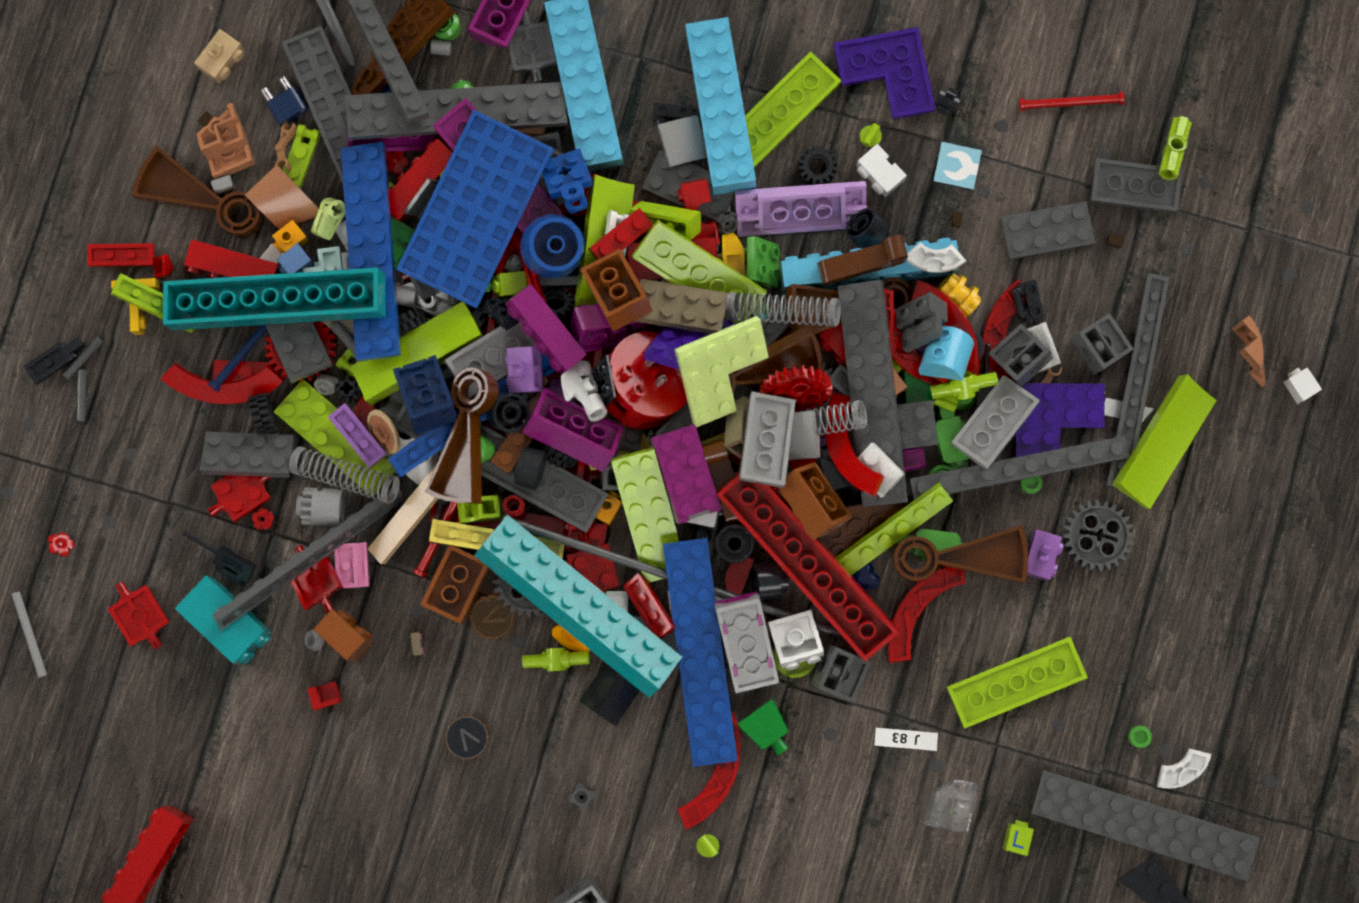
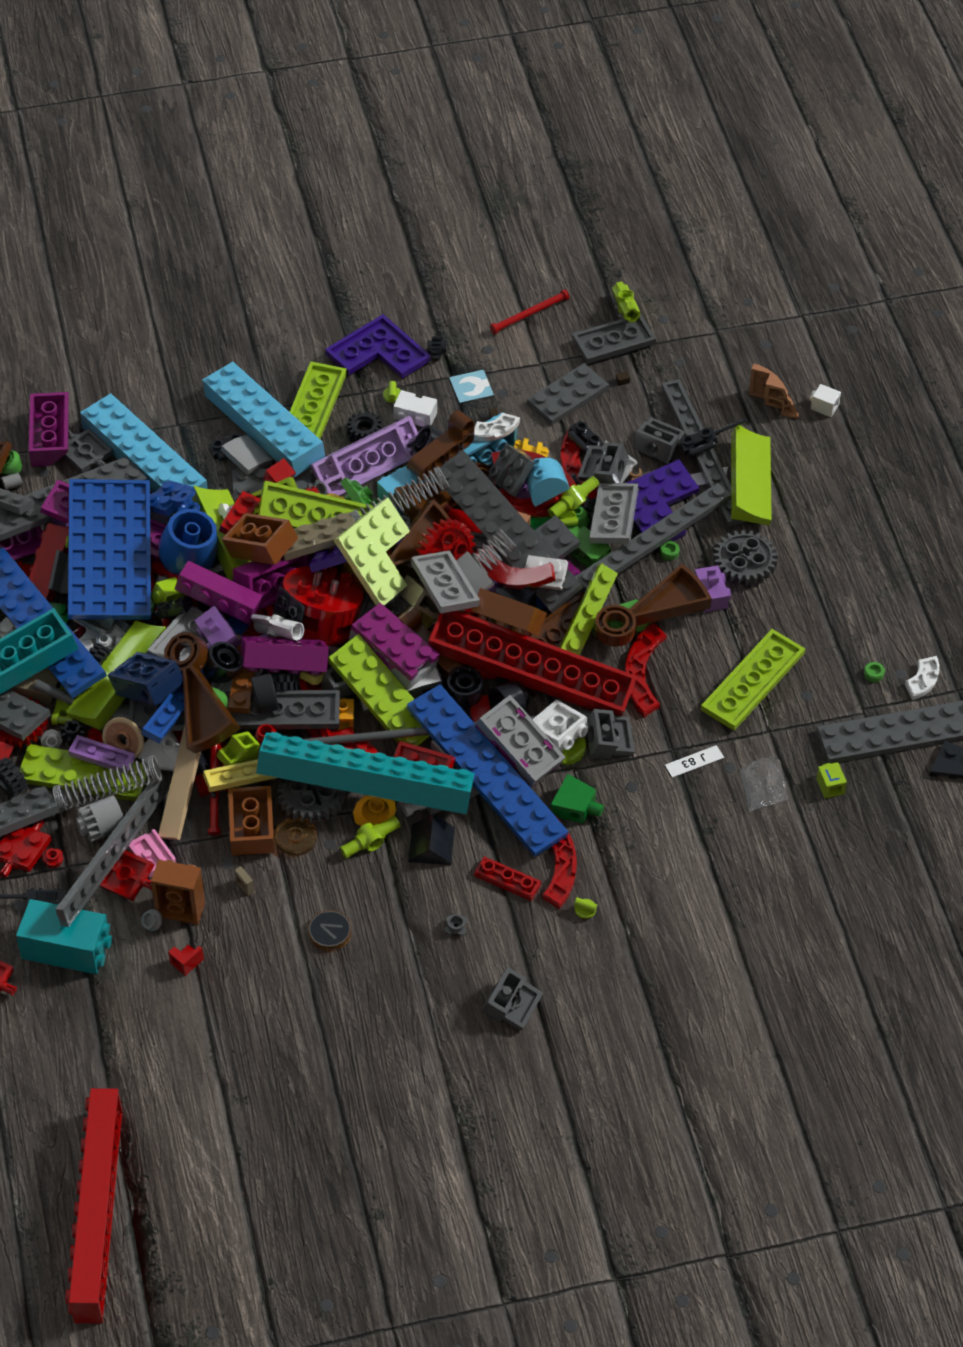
camera: 30 degrees left, 30 degrees down
(648, 760) = (507, 878): none -> red tile
(1145, 370) = (704, 439): none -> black piece

